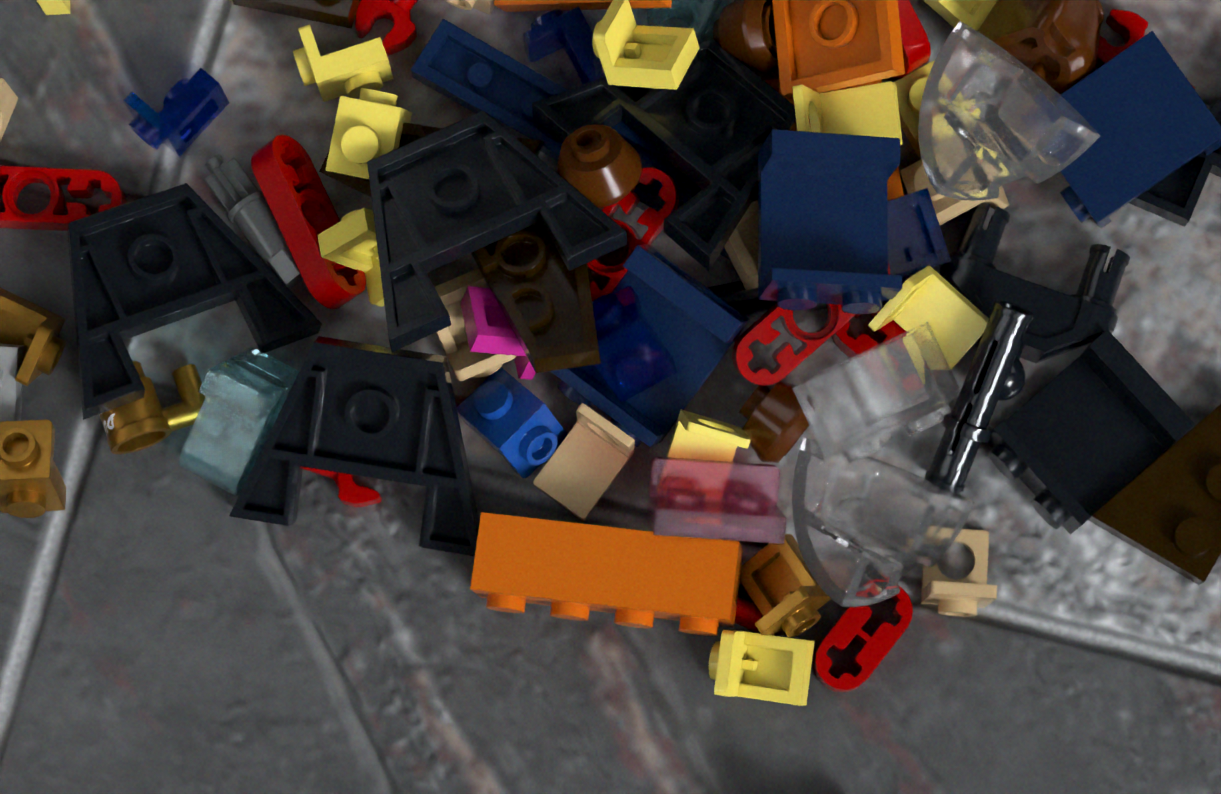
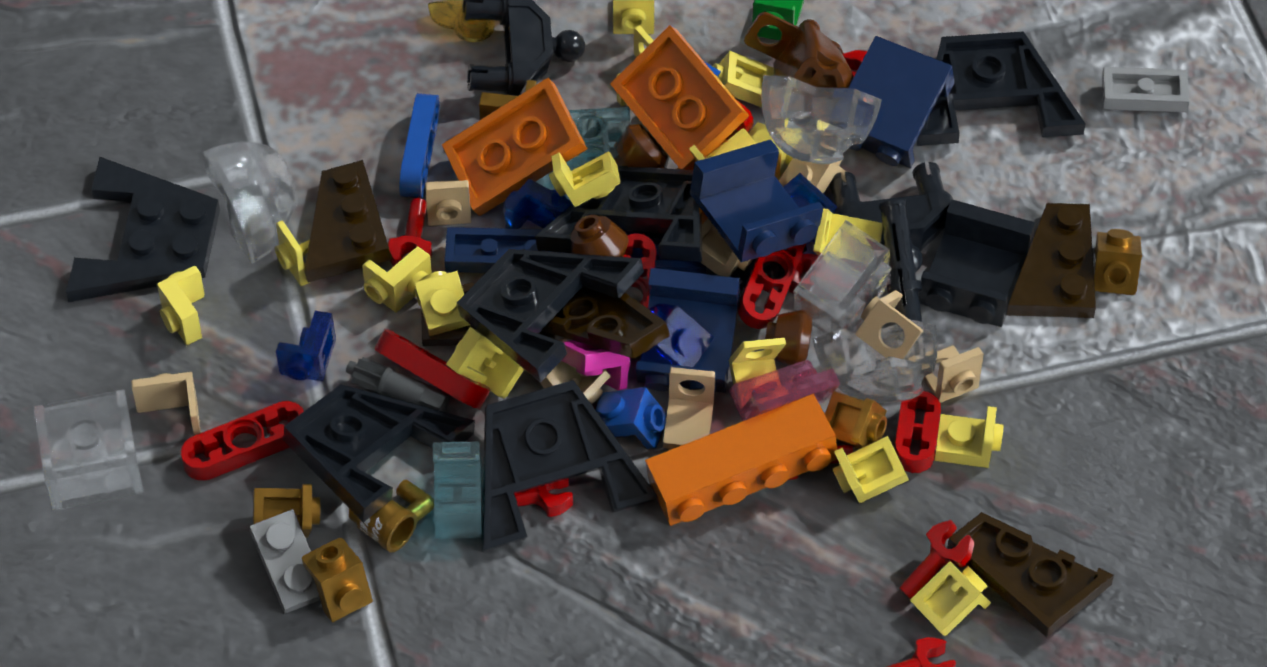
camera: 30 degrees left, 25 degrees down
(896, 471) = (879, 313): none -> tan bracket
(919, 684) = (968, 439): none -> light yellow bracket

